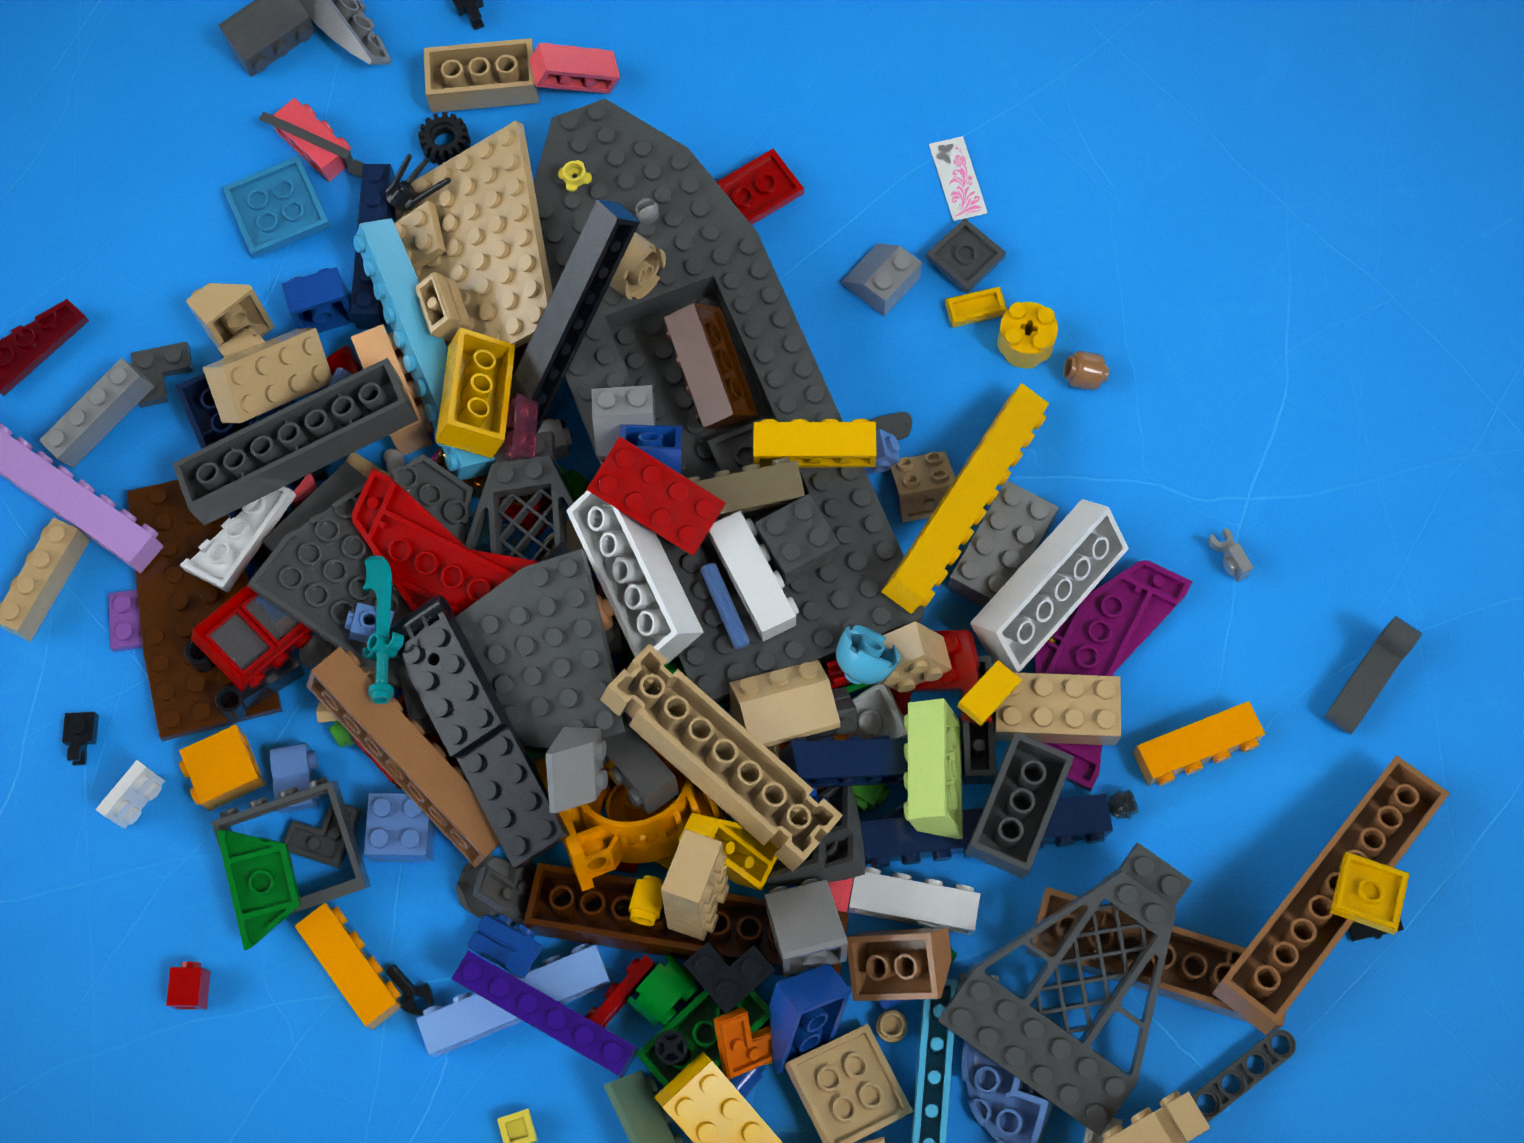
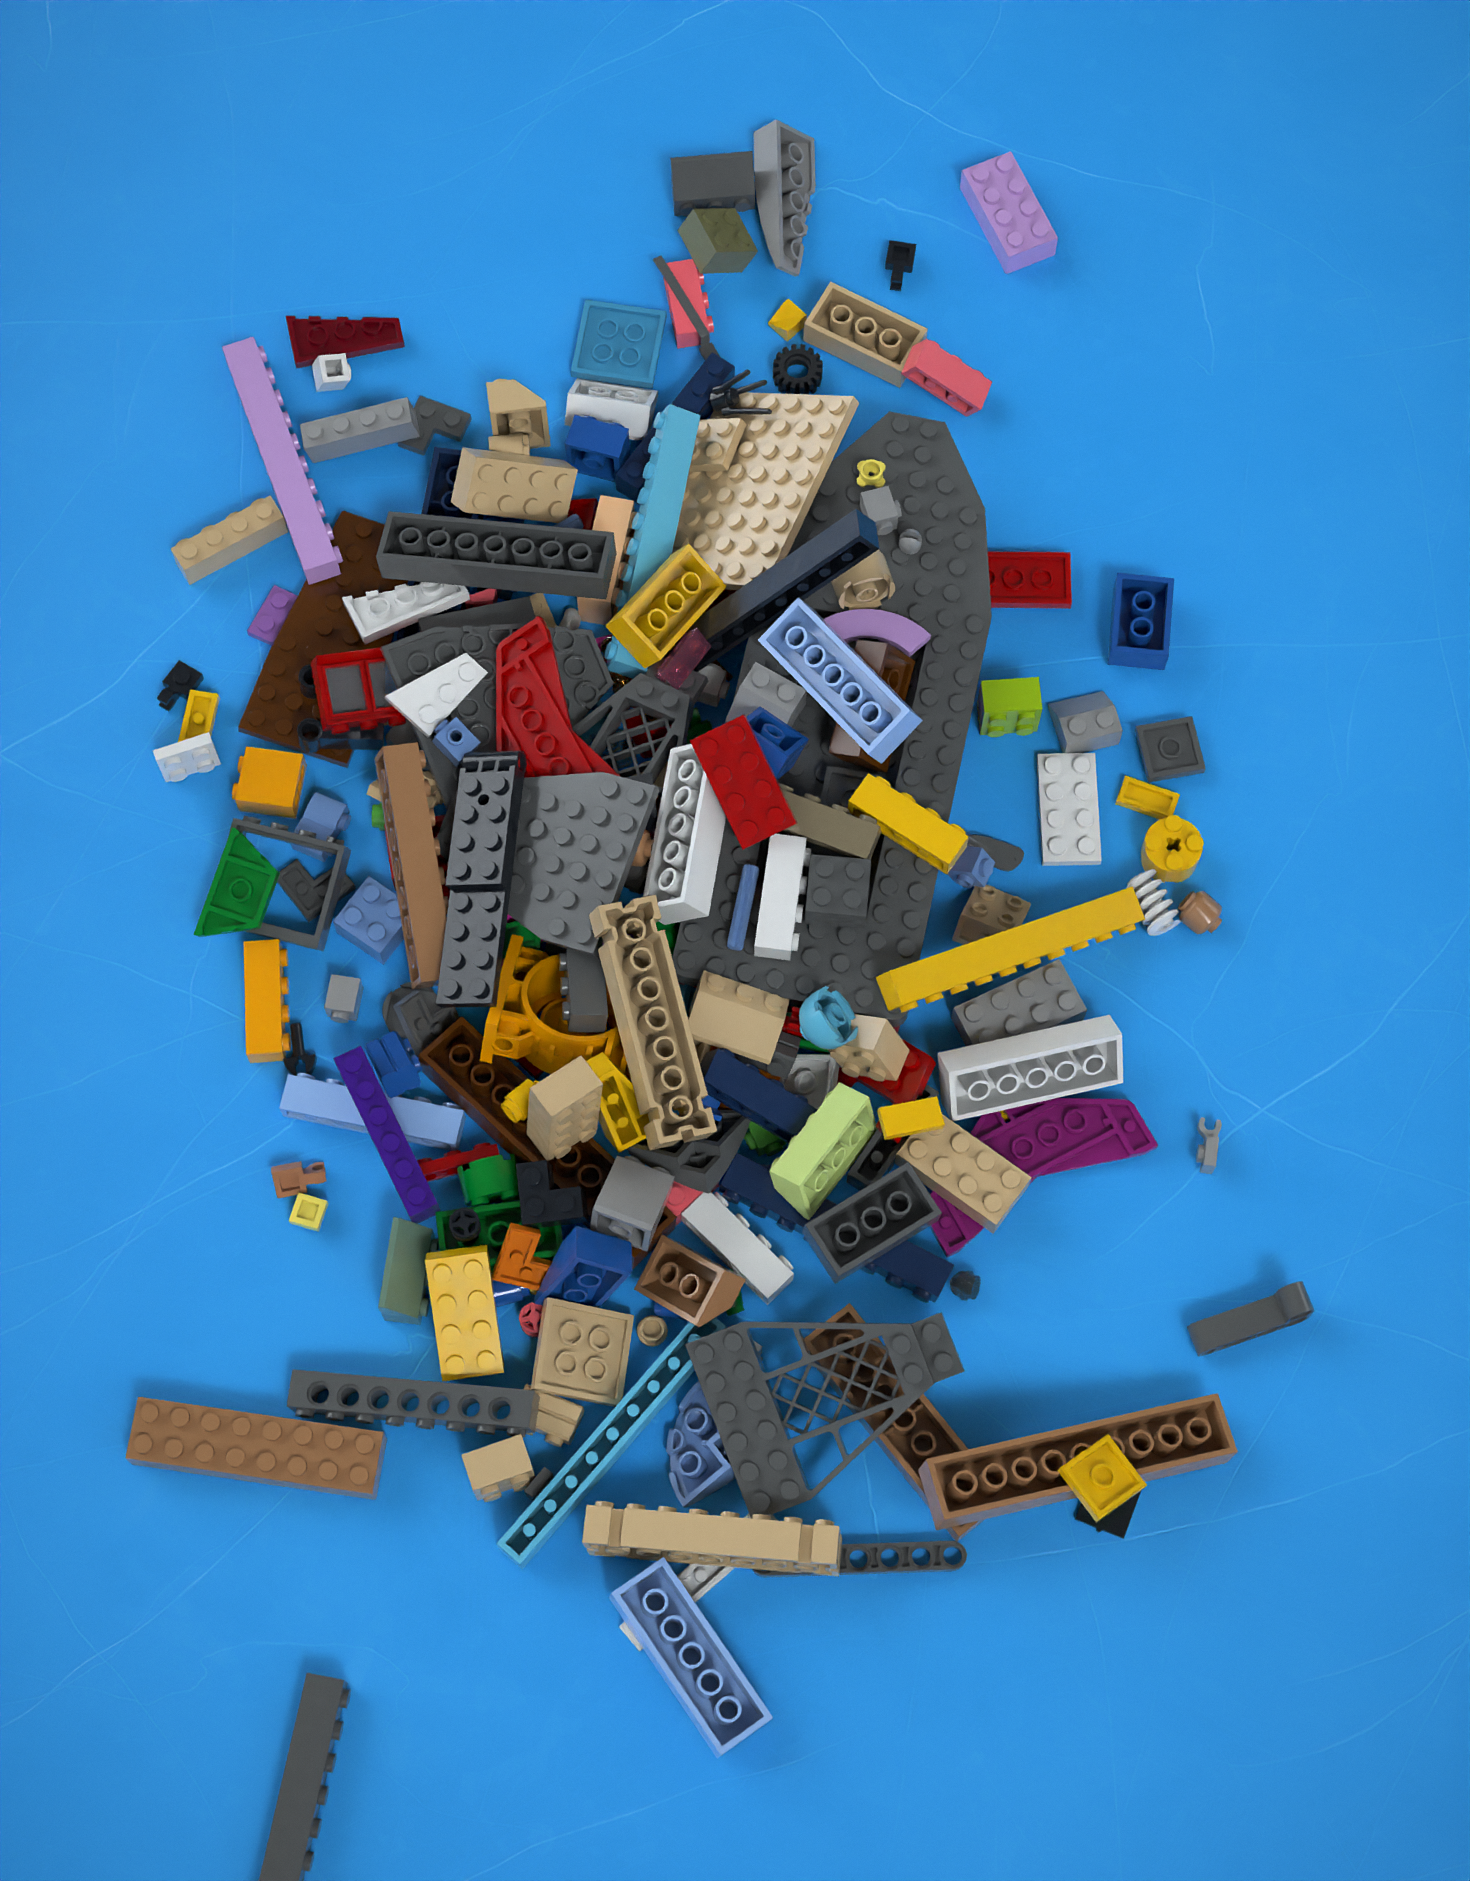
camera: 30 degrees right, 0 degrees up
(37, 379) = (331, 372): none -> white brick
(116, 750) = (199, 714): none -> yellow plate
(188, 987) = (134, 936): red brick -> none
(303, 71) = (717, 240): none -> olive brick
(306, 258) = (613, 403): none -> white slope
(325, 595) = (436, 694): none -> white wing
(379, 644) = (449, 761): teal sword -> none
(407, 103) = (788, 320): none -> yellow slope
(418, 916) = (343, 998): none -> light grey brick
(442, 306) = (690, 517): tan brick -> none
(484, 1108) = (292, 1178): none -> nougat plate
(575, 768) = (534, 956): light grey slope -> none
(603, 190) = (881, 508): none -> light grey brick
(659, 300) = (879, 625): none -> lavender tile
(676, 358) = (840, 680): none -> light blue brick
(785, 1086) = (530, 1313): none -> coral wheel
(818, 298) = (1009, 706): none -> lime brick
(870, 167) = (1140, 621): none -> blue brick
(919, 355) = (1068, 809): none -> white plate
(958, 178) = (1215, 678): white sticker -> none
(1044, 387) = (1152, 905): none -> white piece
(1198, 744) = (1064, 1279): light orange brick -> none

